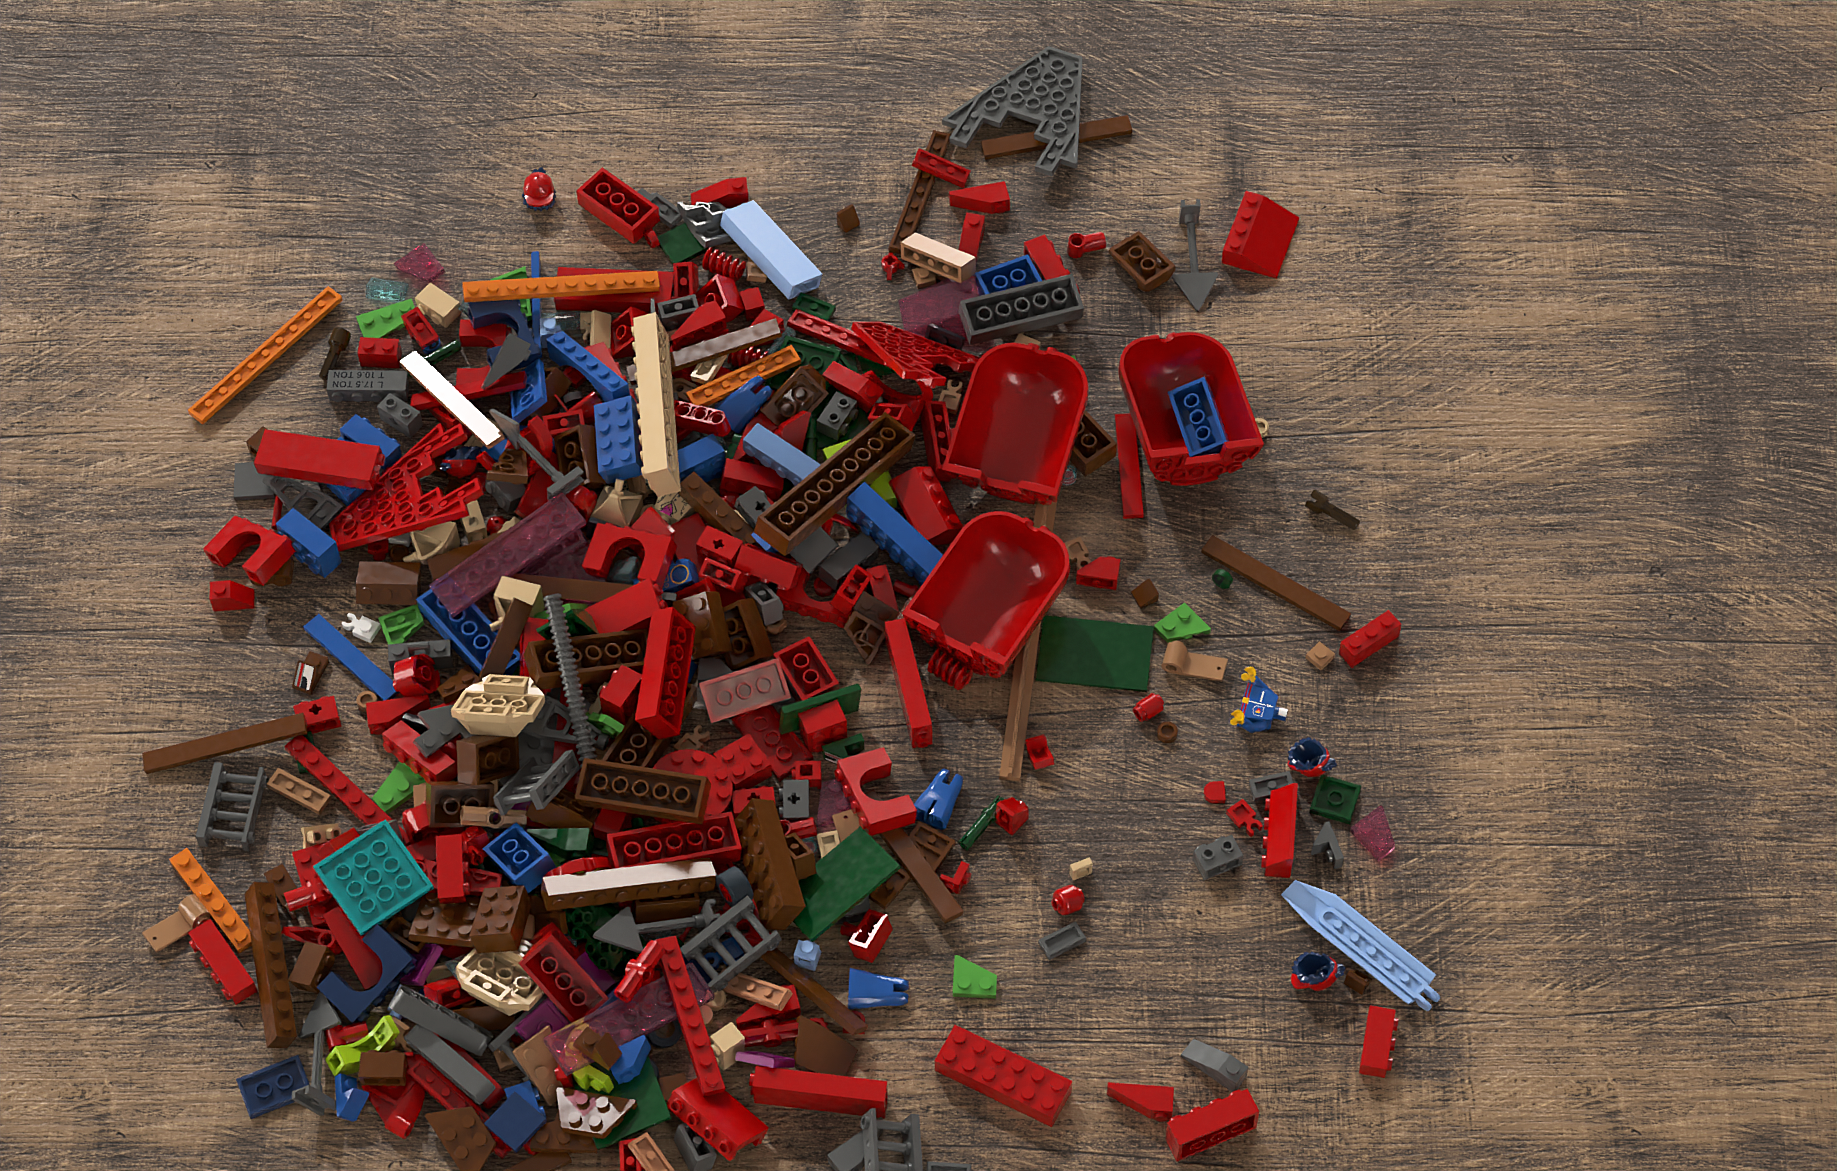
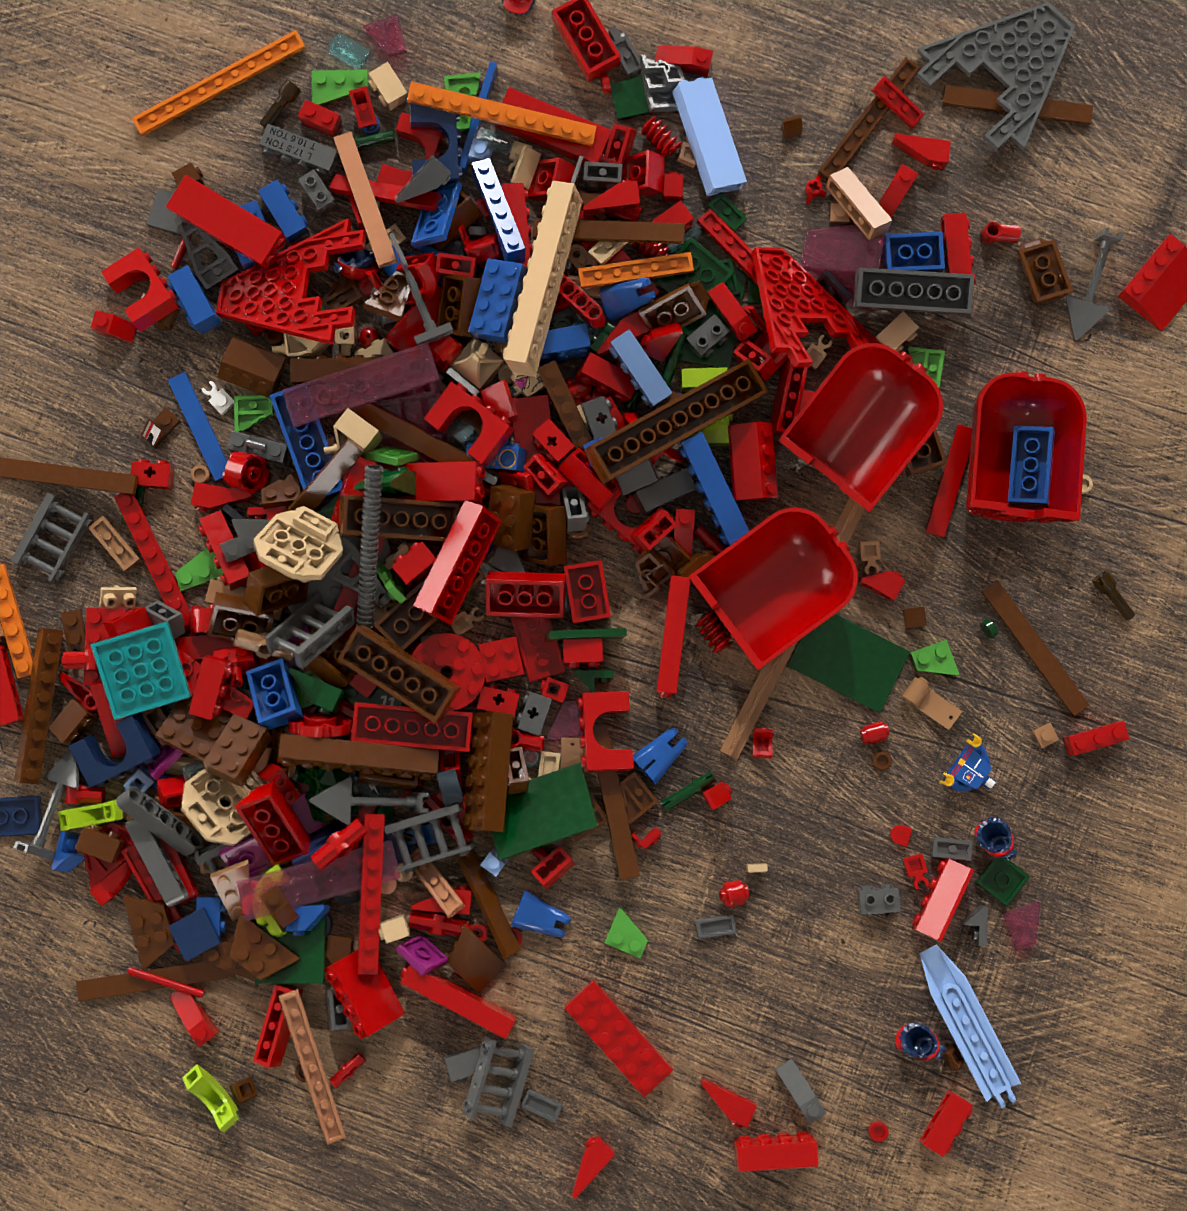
camera: 15 degrees right, 25 degrees up
(1312, 1077) = (878, 1131): none -> red tile

